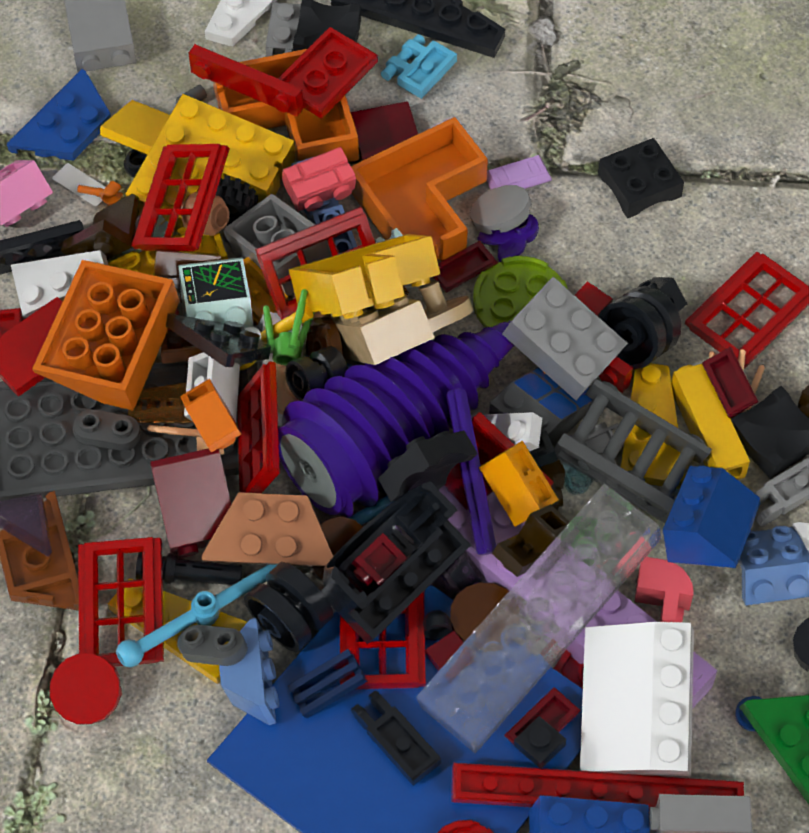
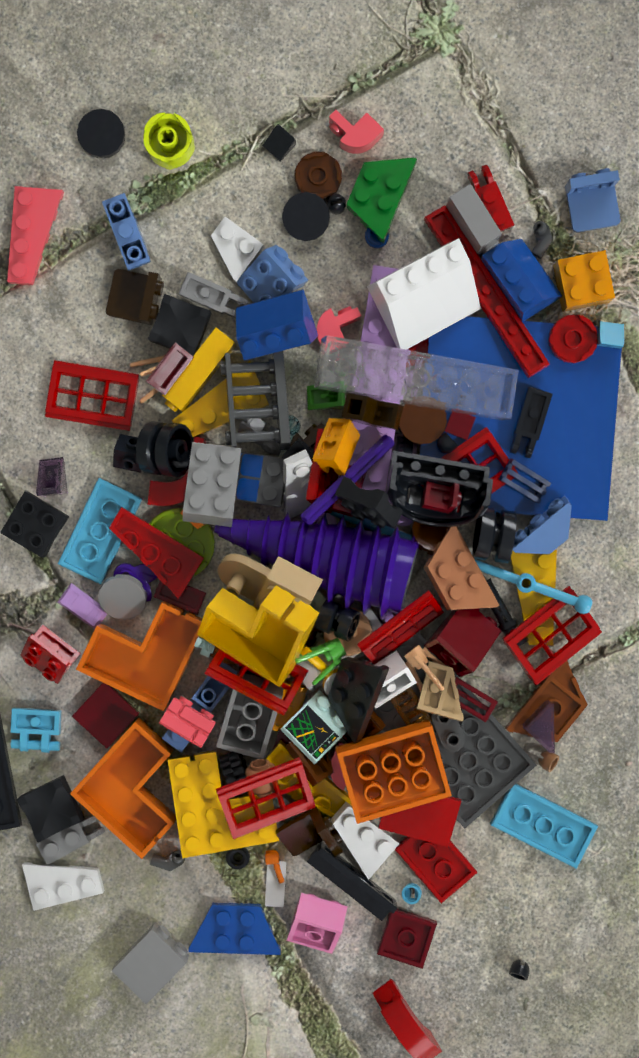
camera: 125 degrees left, 30 degrees up
(85, 689) = (613, 617): red tile -> none
(120, 477) = (488, 709): none -> dark red tile
(135, 126) = (212, 876): yellow tile -> none
(138, 435) = (438, 702): none -> tan wing
(206, 646) = (547, 562): dark grey plate -> none
(211, 416) = (420, 656): orange slope -> none
(246, 80) = (148, 859): red plate -> none
(329, 70) = (97, 778): red tile -> none
(493, 117) = (49, 654): none -> red bracket
(520, 269) = (162, 554): none -> red wing
(540, 742) = (485, 336): black plate -> none
(552, 708) = (468, 345): dark red tile -> none
(590, 235) = (92, 542): none -> medium azure tile
(680, 217) = (51, 477): none -> clear purple slope

